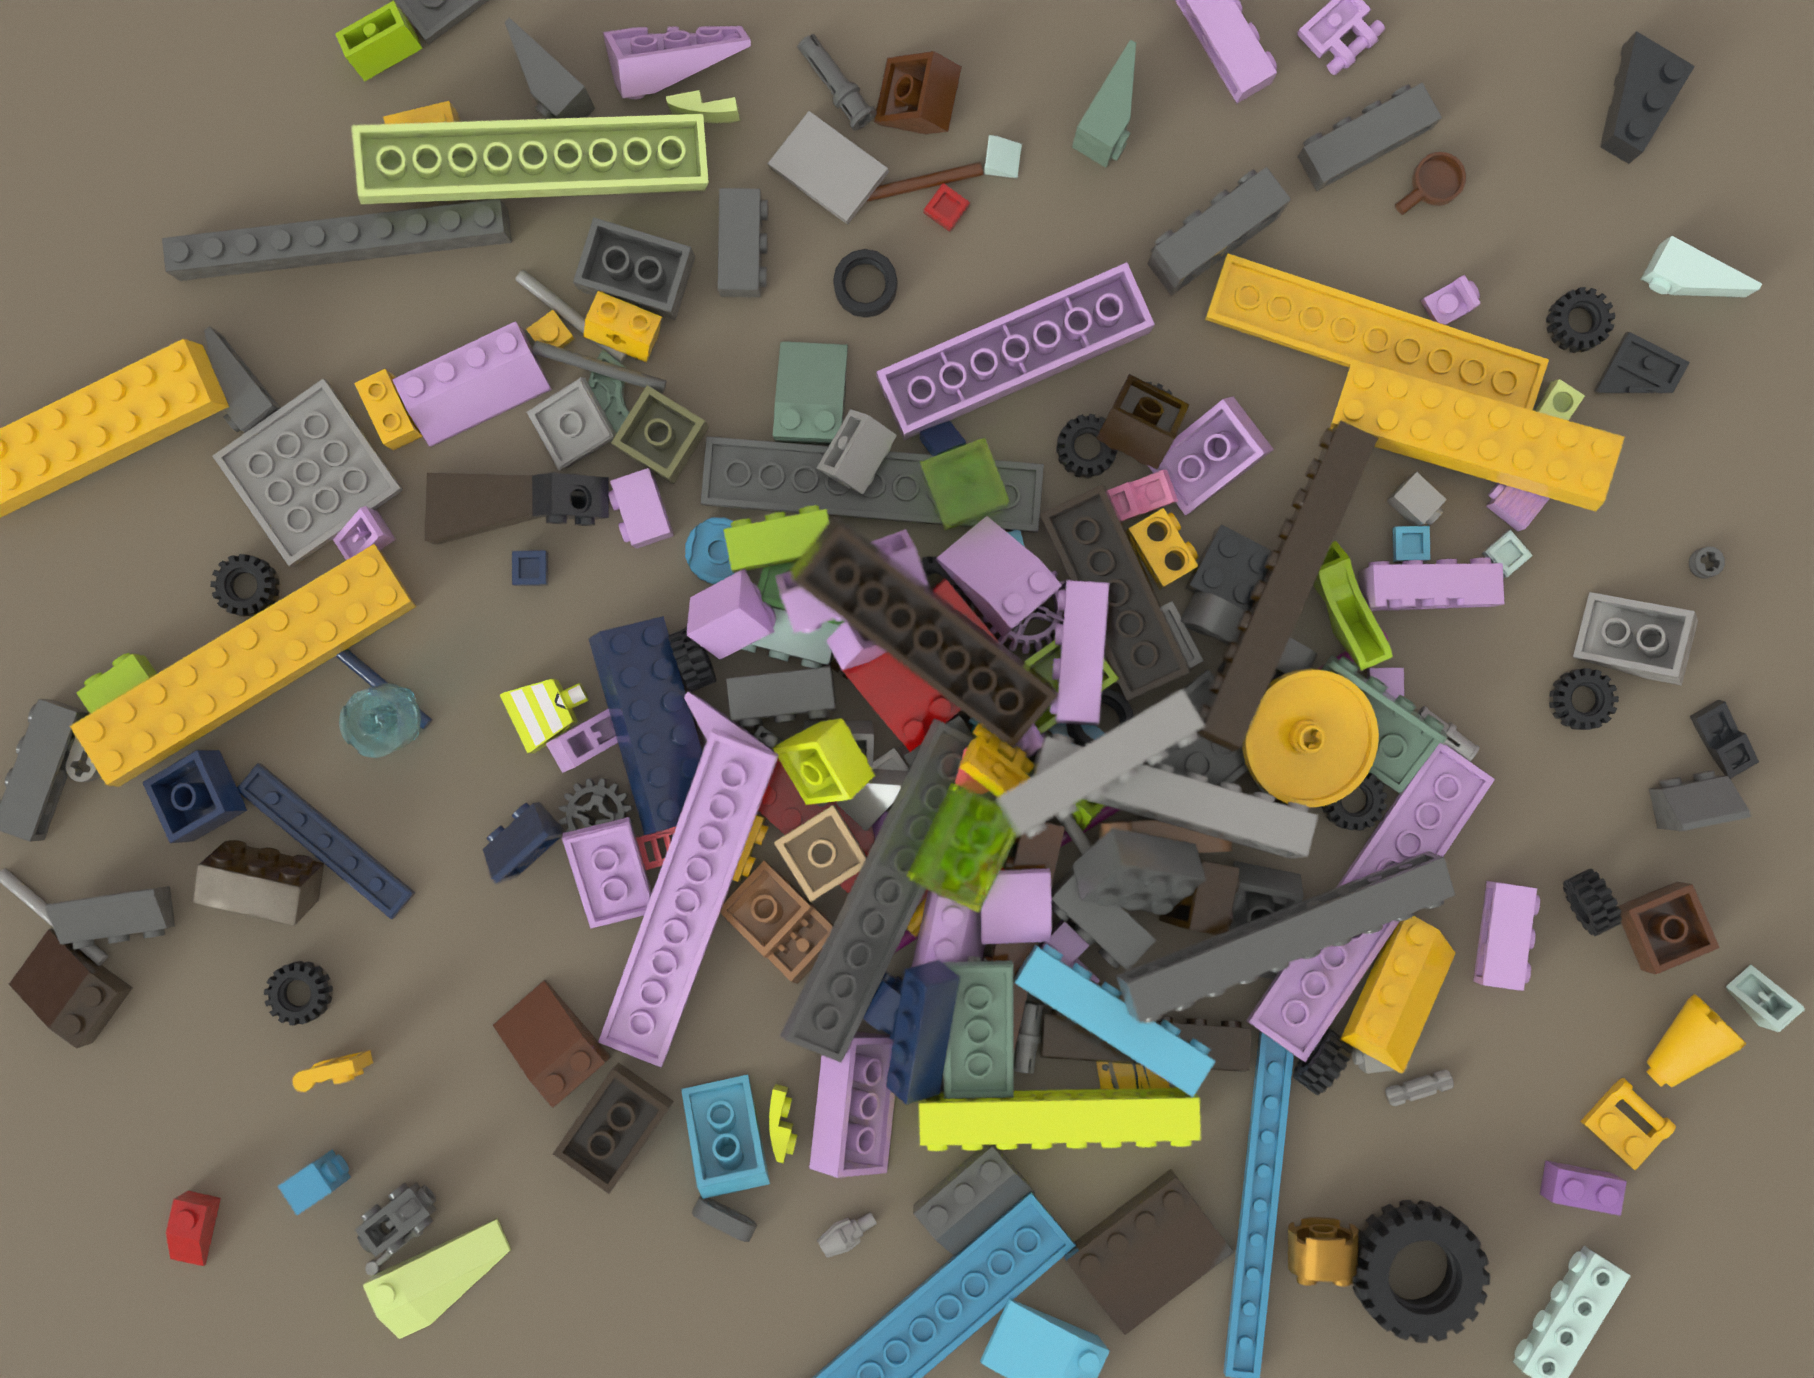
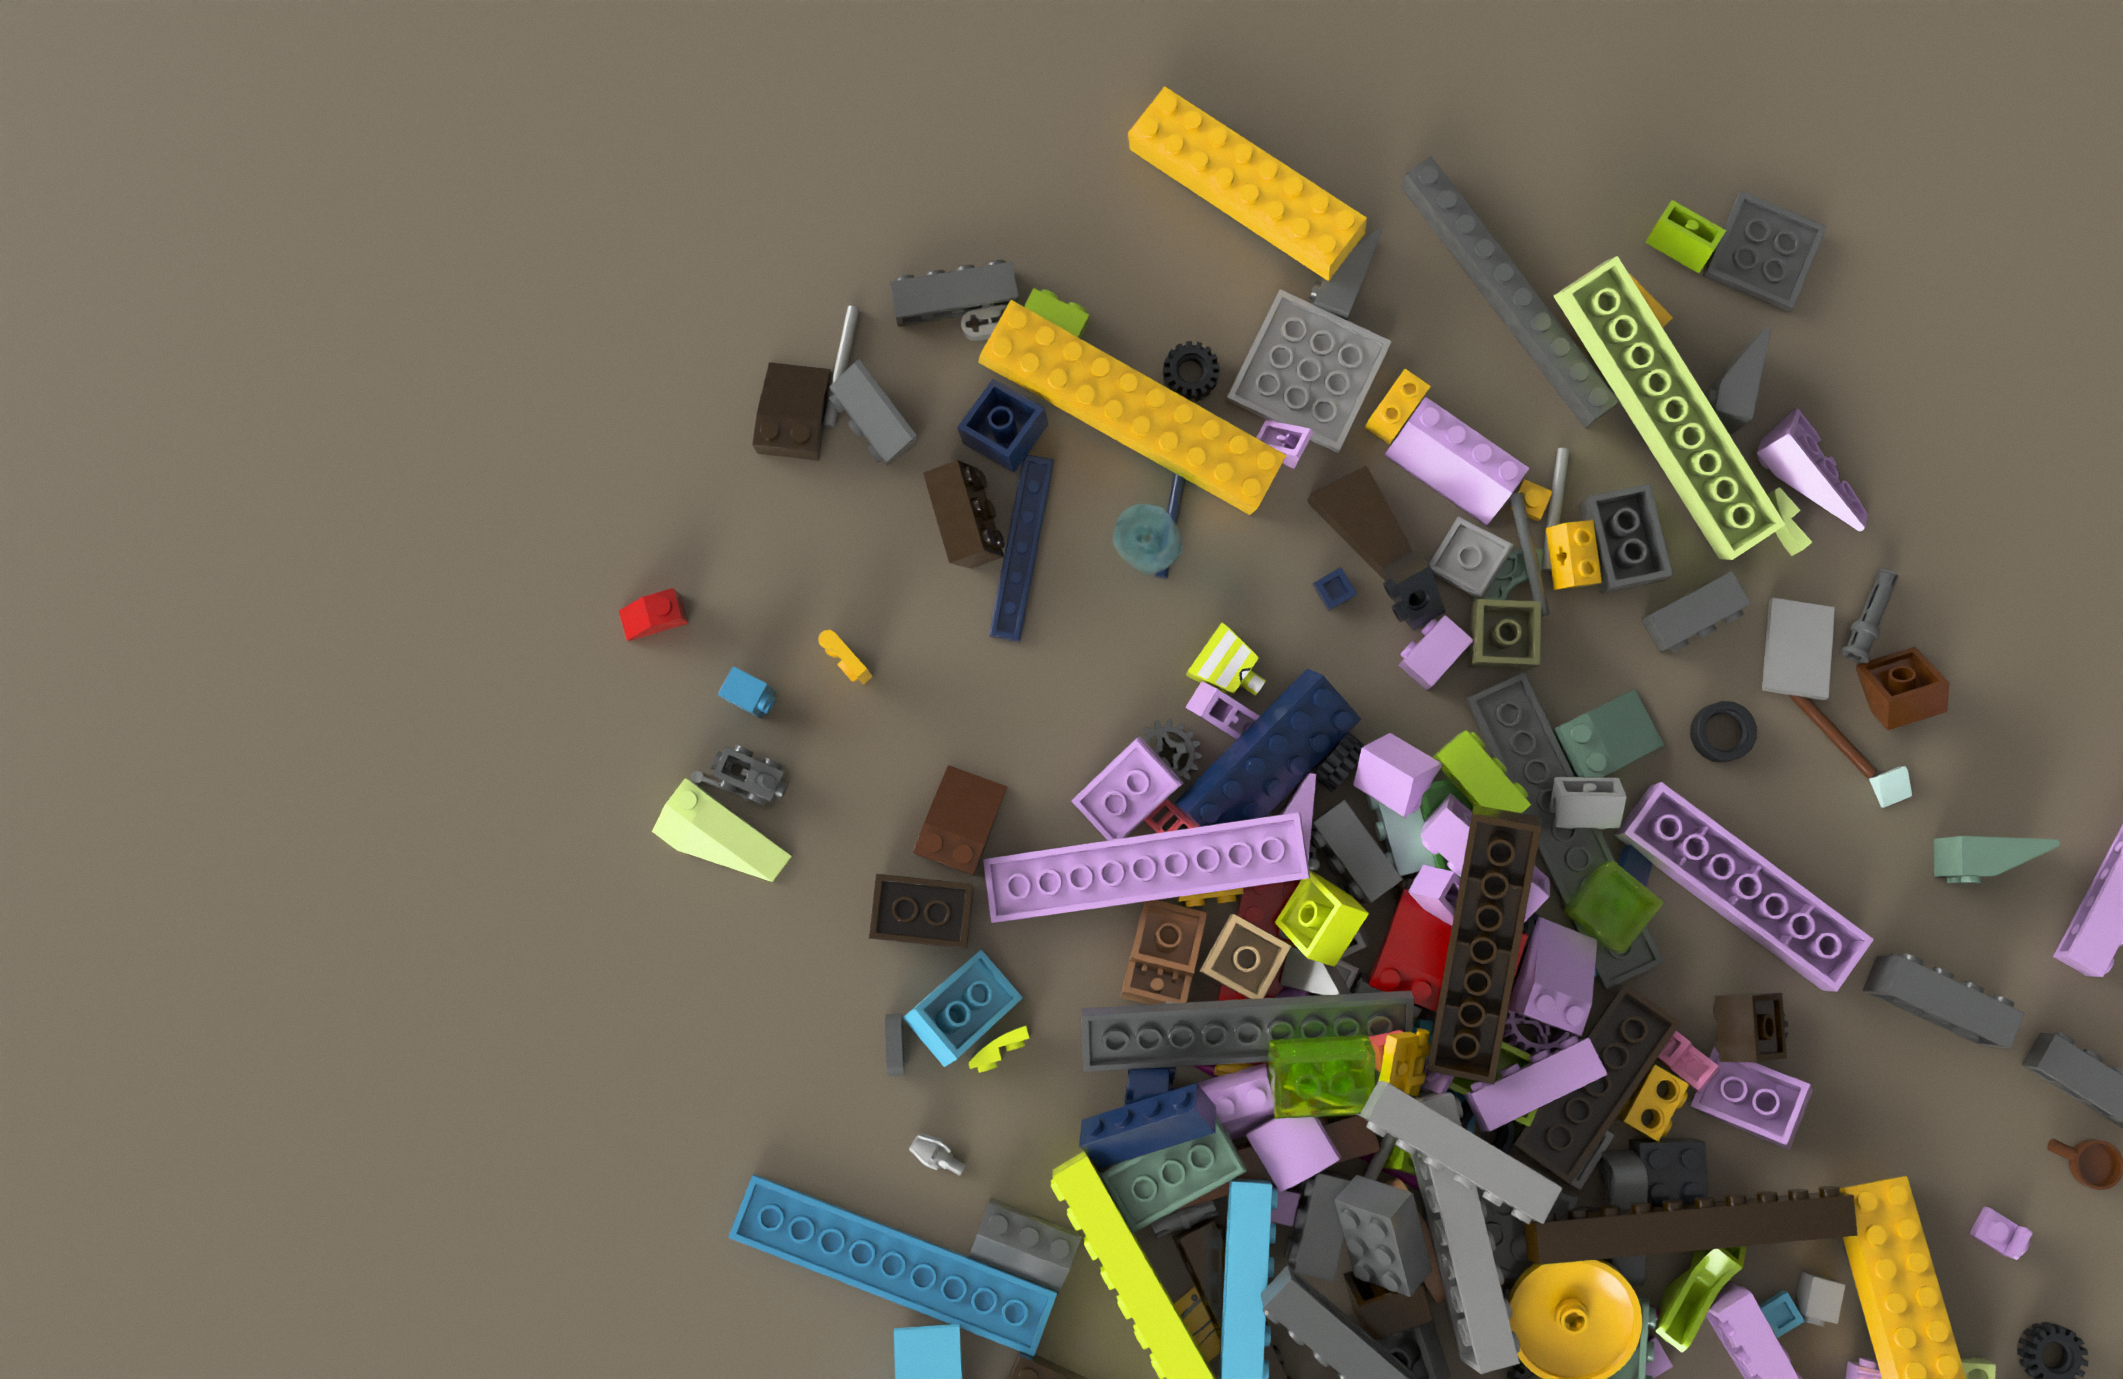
camera: 55 degrees right, 5 degrees down
(278, 993) = (875, 581): black tyre -> none
(521, 843) = (1113, 706): dark blue slope -> none
(708, 552) = (1433, 727): dark azure tile -> none
(854, 1110) = (1045, 1103): lavender slope -> none
(946, 207) = (1823, 763): red tile -> none
(1068, 455) = (1681, 982): black tyre -> none
(1351, 327) = (1927, 1152): yellow plate -> none

